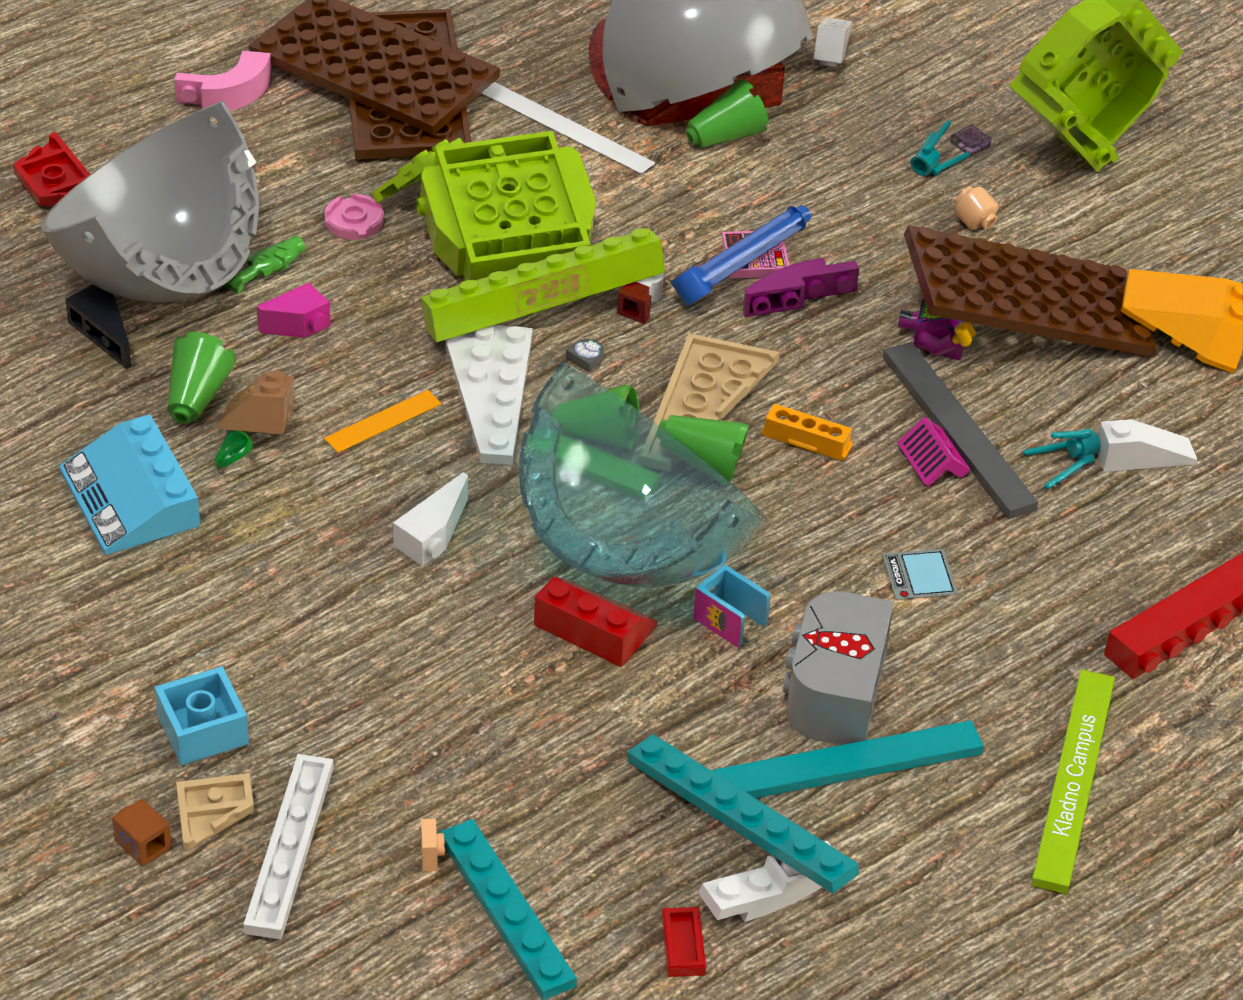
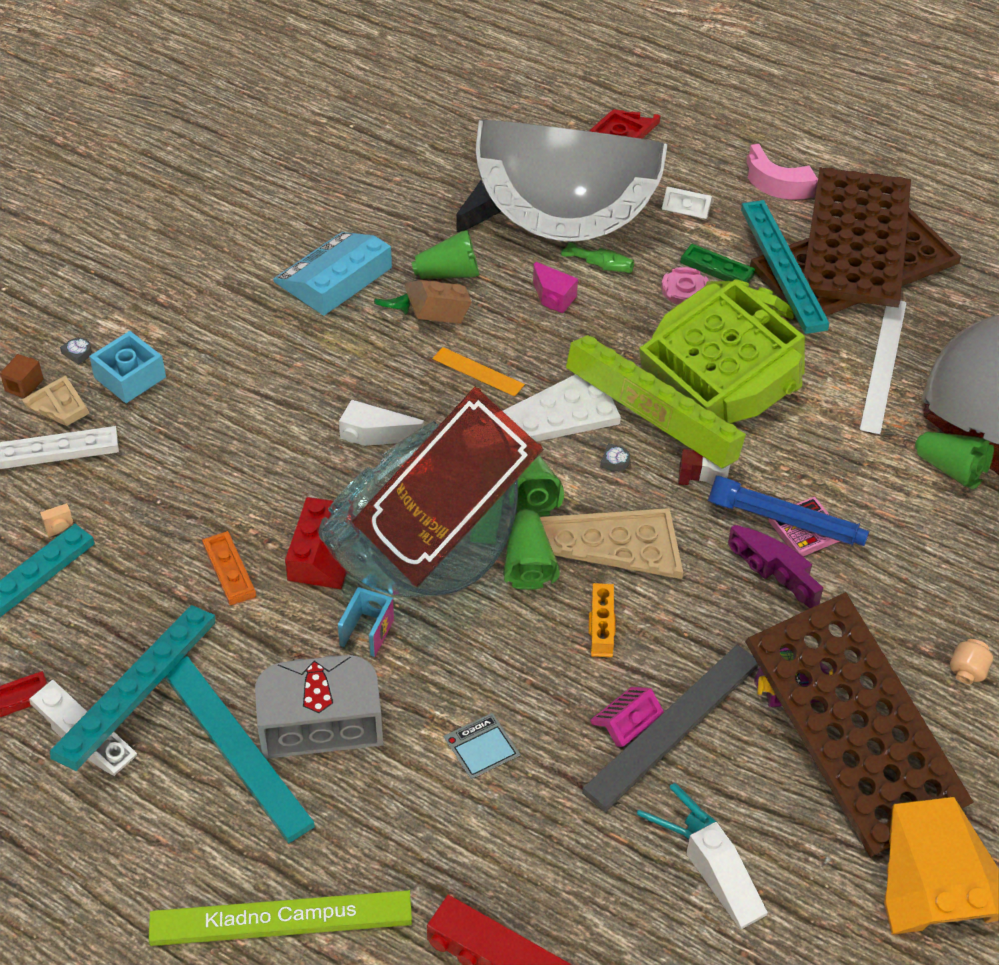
camera: 70 degrees right, 5 degrees up
(117, 771) = (76, 349): none -> dark grey tile
(337, 182) = (716, 264): none -> green tile
(384, 124) = (785, 267): none -> teal plate
(580, 710) = (229, 568): none -> orange tile
(627, 440) = (447, 486): none -> clear red piece

